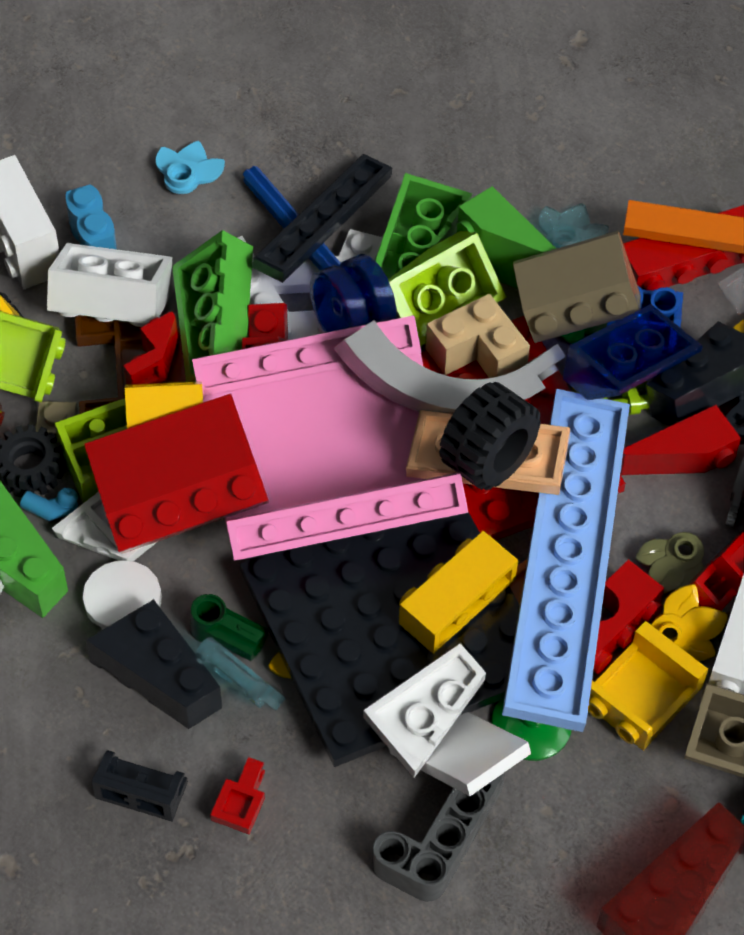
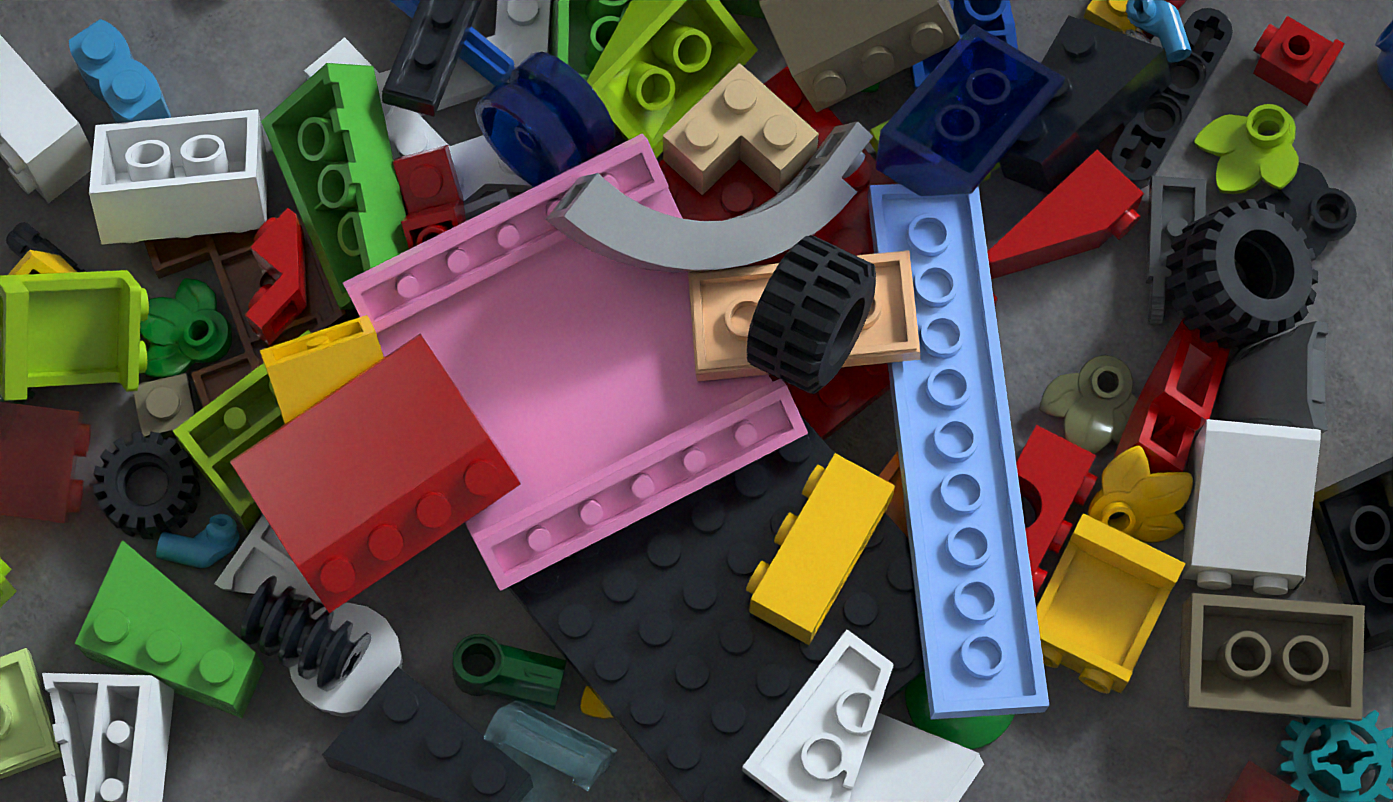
camera: 15 degrees left, 15 degrees up
(82, 378) = (176, 326): none -> green plate
(98, 567) = (300, 637): none -> black piece

